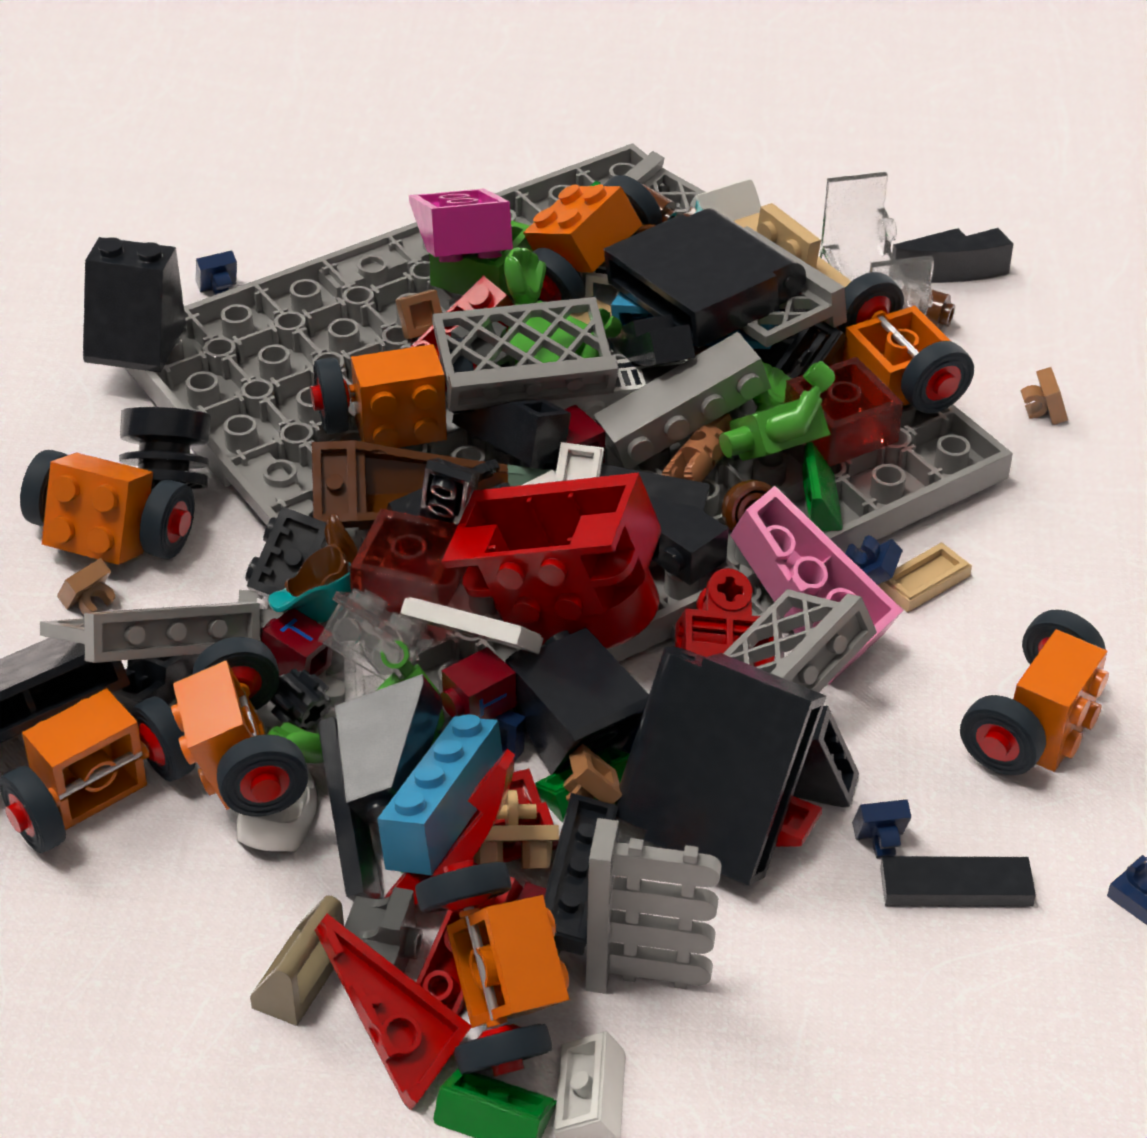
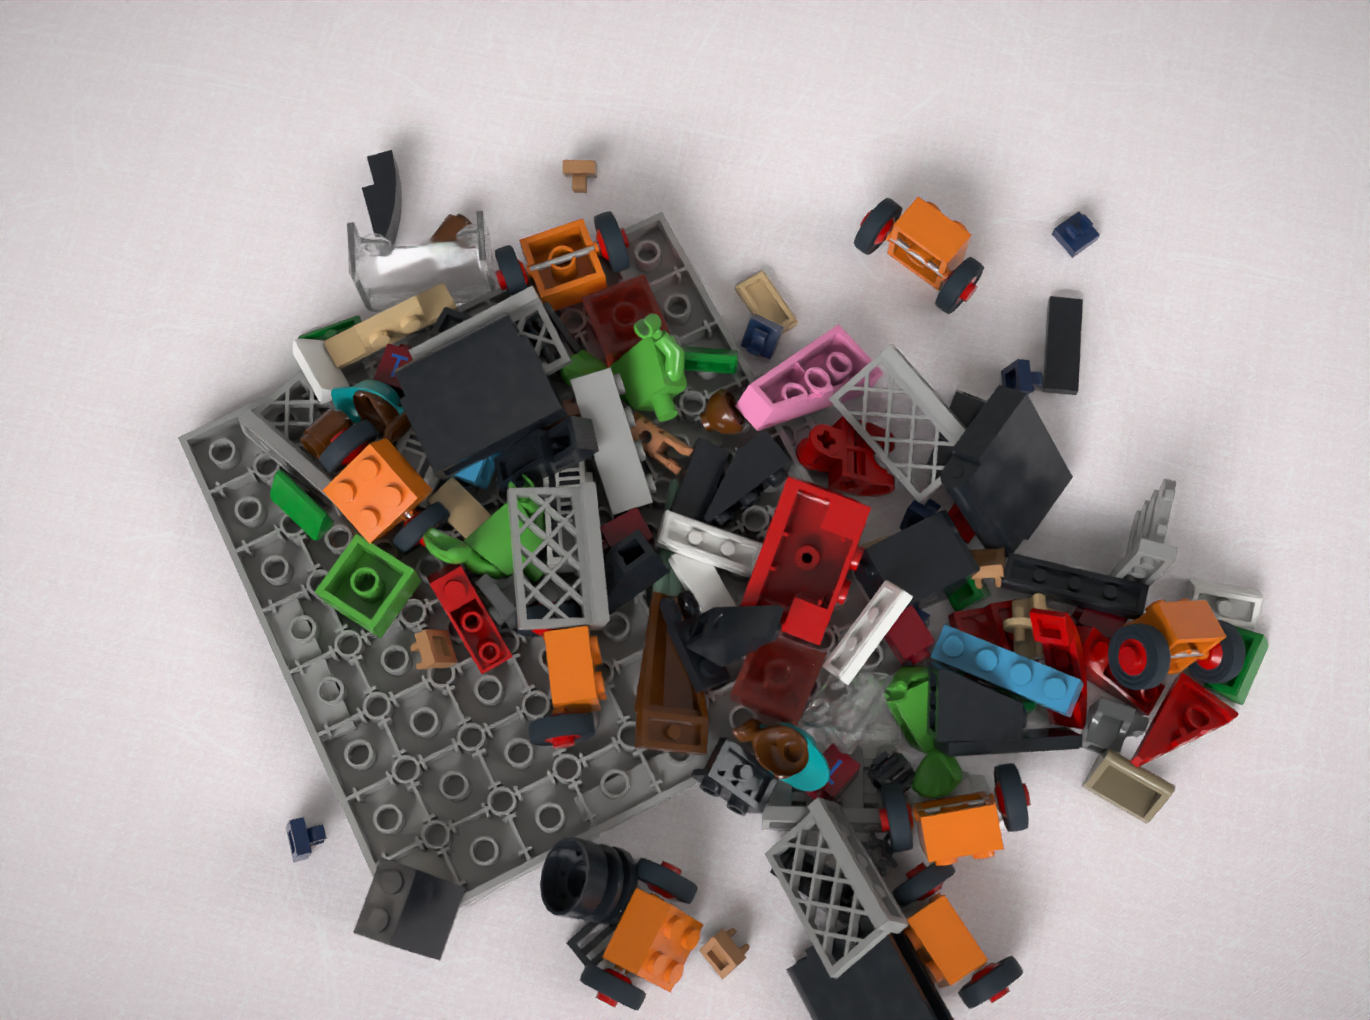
camera: 80 degrees left, 30 degrees up
(463, 223) = (355, 594): dark pink slope -> none

